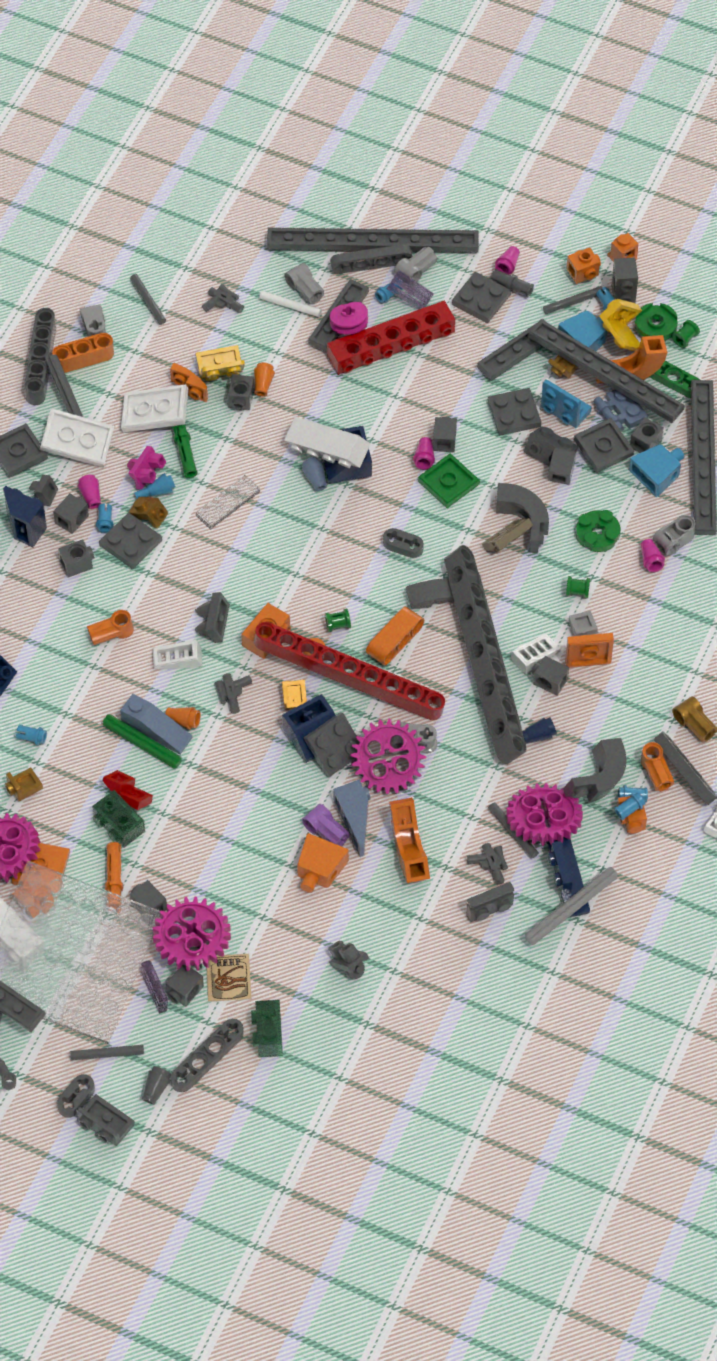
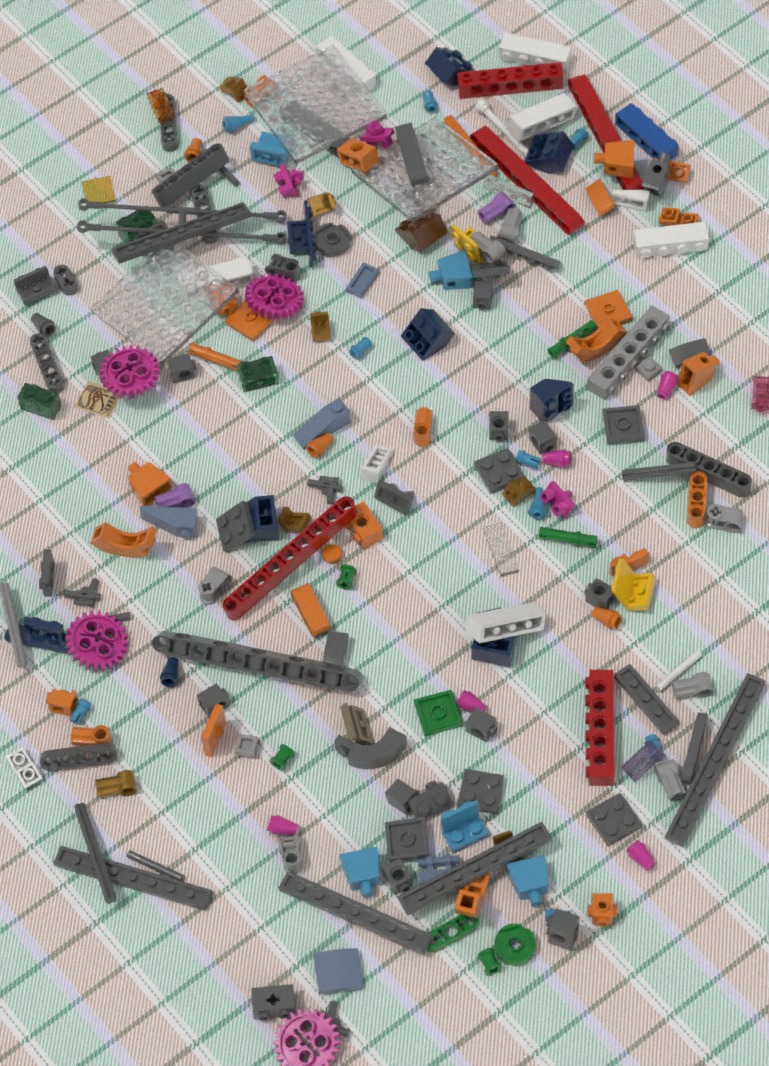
camera: 120 degrees right, 0 degrees up
(44, 489) = (573, 427): dark grey tile -> none
(77, 437) = (611, 464): white tile -> none
(107, 1052) = (81, 317): dark grey bar -> none
(124, 786) = (278, 387): red slope -> none
(142, 741) = (303, 419): green axle -> none
(148, 299) = (735, 569): dark grey bar -> none
(154, 408) = (614, 527): white tile -> none
(154, 986) = (111, 345): clear purple tile -> none
(222, 297) = (708, 624): dark grey piece -> none
(348, 959) = (58, 466): dark grey hips -> none
(349, 318) = (628, 703): dark pink piece -> none
(393, 777) = (202, 555): dark pink gear -> none
(403, 543) = (394, 653): dark grey beam -> none
(508, 355) = (539, 812): dark grey plate -> none
(512, 282) = (615, 848): dark grey pin -> none
(525, 665) = (239, 689): white slope -> none
(571, 300) = (575, 888): dark grey bar -> none
(598, 519) = (329, 789): green plate -> none
(611, 765) = (97, 692): dark grey arch -> none
(615, 321) = (513, 905): yellow bracket -> none
(623, 245) = (604, 952): orange brick -> none
(630, 805) = (60, 694): dark azure pin -> none

